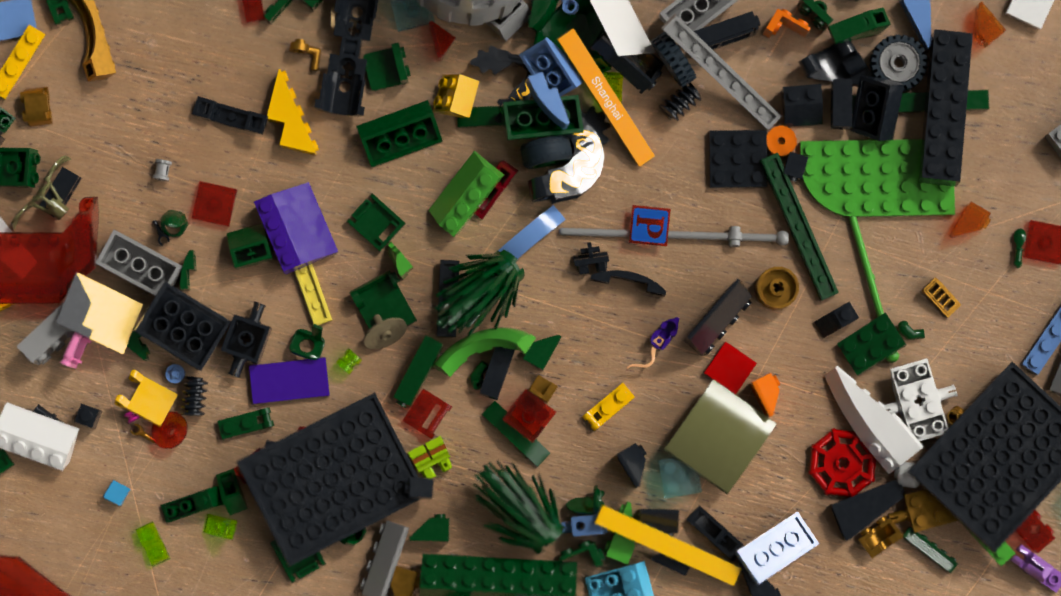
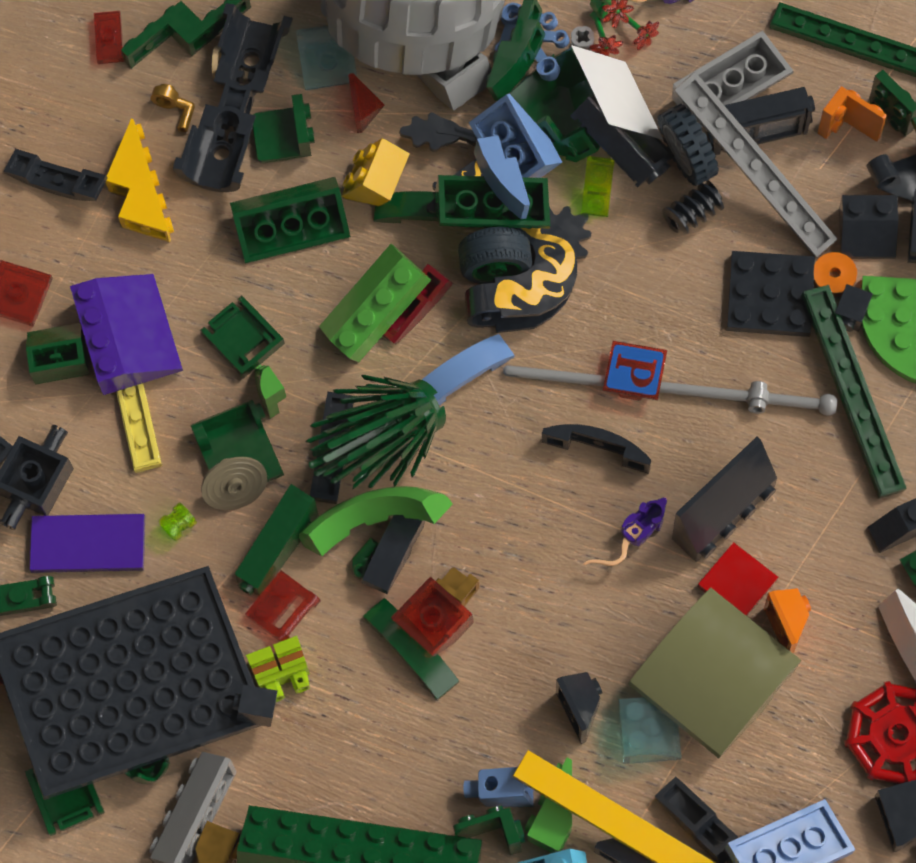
camera: 15 degrees right, 15 degrees down
(314, 336) = (132, 483): dark green piece -> none
(433, 529) = (269, 775): dark green slope -> none
(519, 508) = (405, 758): dark green plant -> none
(541, 351) = (460, 531): dark green slope -> none
(587, 504) = (505, 758): dark green piece -> none
(590, 256) = (558, 412): black hips -> none
(605, 97) = (586, 188): light orange tile -> none
(609, 406) = (552, 620): yellow plate -> none
(661, 519) = (617, 784): black slope -> none
(788, 287) = (830, 469): pearl gold wheel -> none

